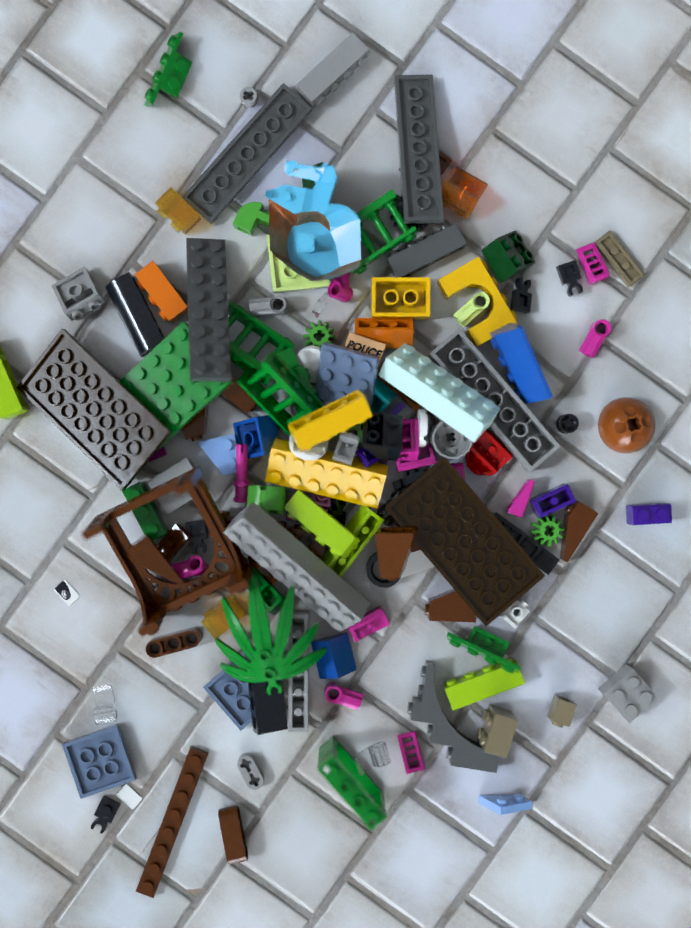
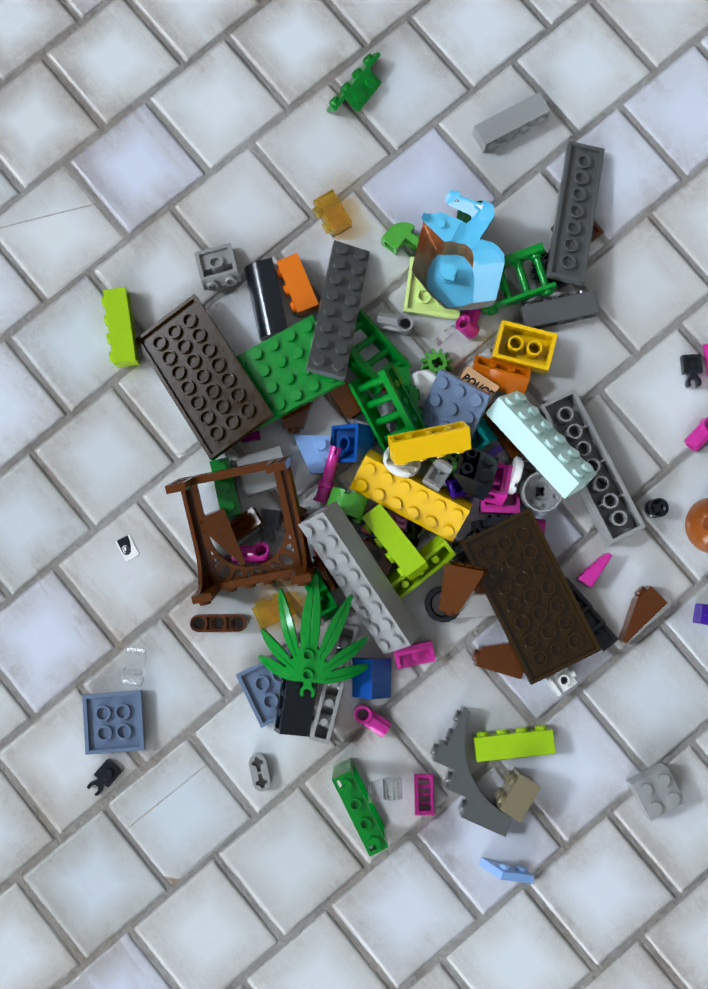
camera: 15 degrees right, 5 degrees down
(129, 796) = (133, 766): white sticker -> none
(172, 822) = (168, 803): reddish brown plate -> none
(233, 834) = (226, 831): reddish brown beam -> none
(247, 153) = (411, 177): dark grey plate -> none
(250, 91) = (428, 122): light grey bush -> none
(462, 191) = (606, 263): clear orange slope -> none
(471, 310) = (588, 375): yellowish green piece -> none
(475, 275) = (600, 344): yellow arch -> none
(486, 645) = (526, 706): green bracket -> none
(487, 455) = (570, 518): red slope -> none
(508, 256) = (636, 334): dark green slope -> none
(520, 297) = (639, 375): black plate -> none
(520, 363) = (625, 437): blue slope -> none
(552, 500) = (624, 578): dark purple brick -> none
(554, 530) = (618, 610): bright green gear -> none
(561, 711) = (585, 792): dark tan brick -> none

